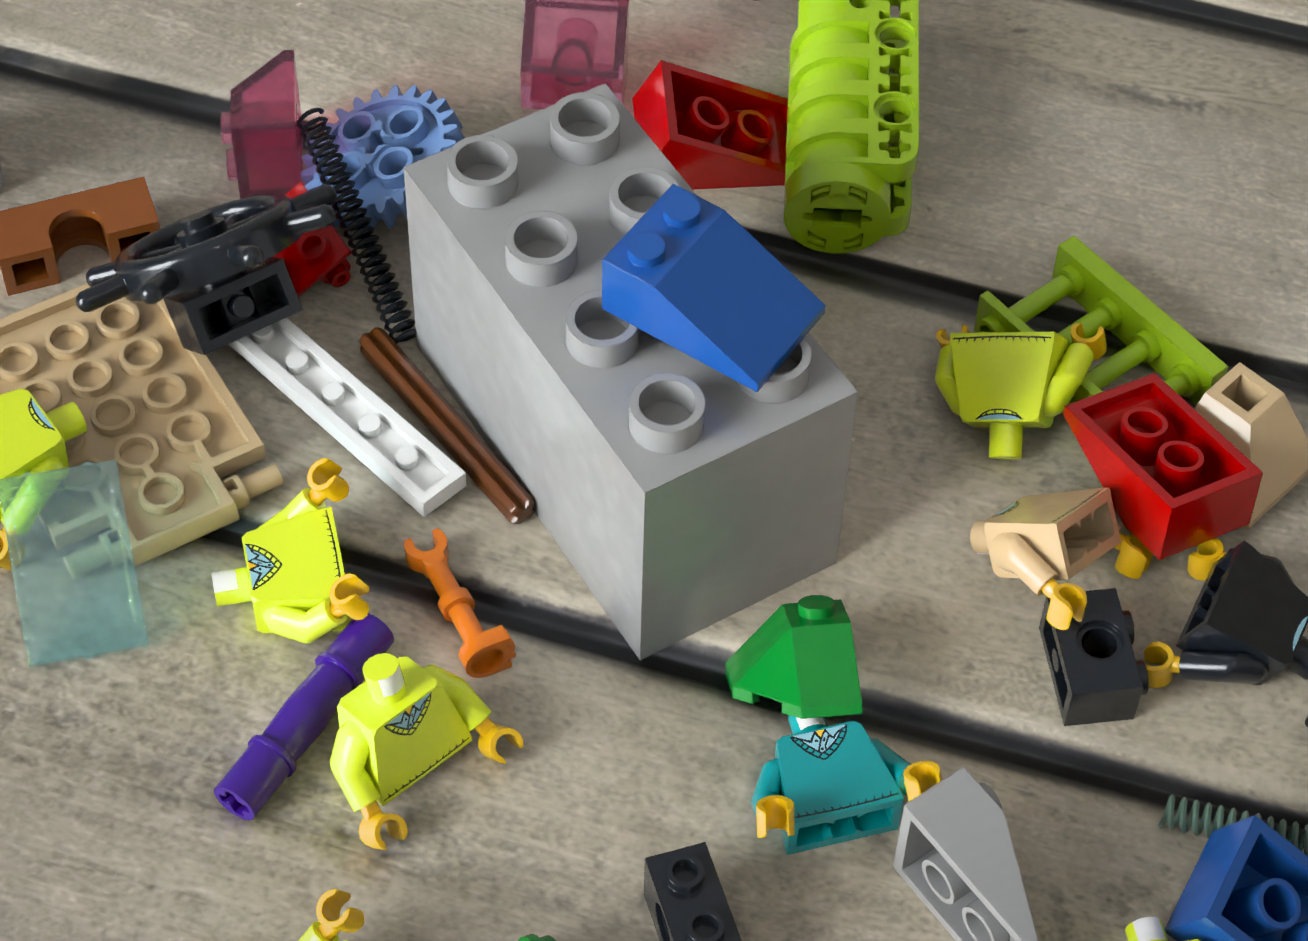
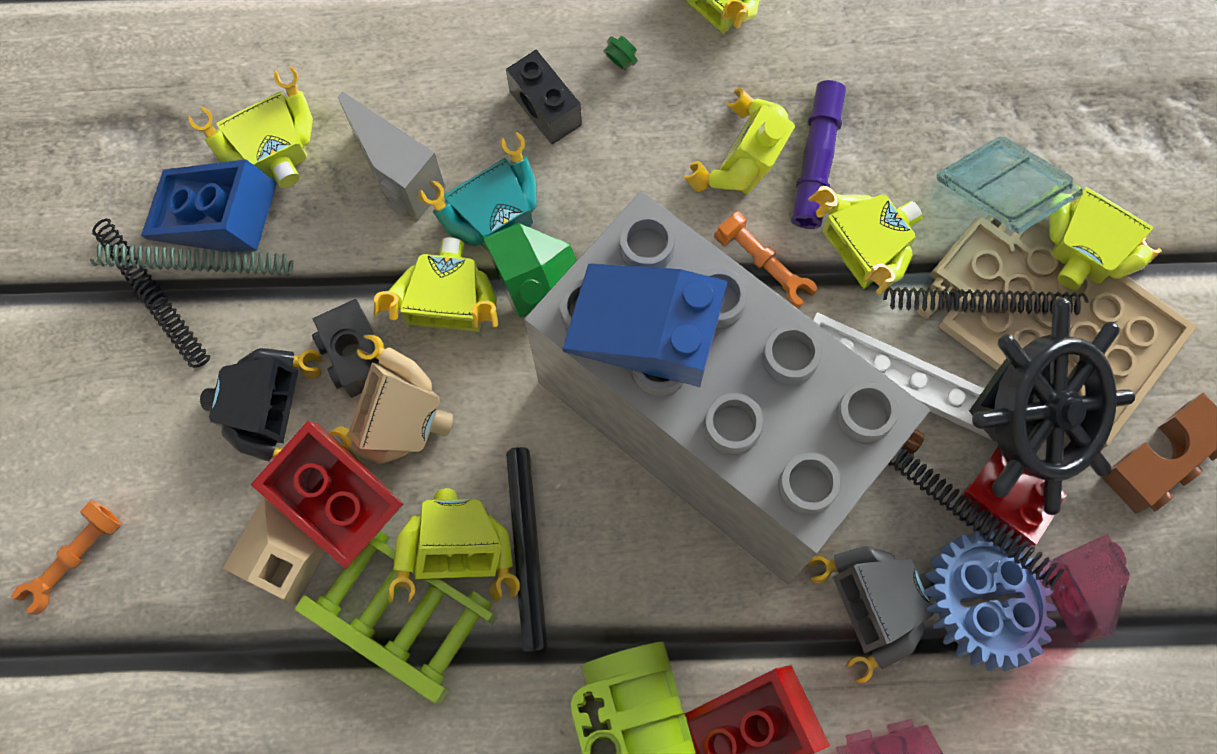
camera: 165 degrees right, 20 degrees up
(163, 421) = (1045, 304): none -> black piece
(914, 380) = (526, 550): none -> black axle
(939, 686) = (442, 292): none -> neon yellow torso

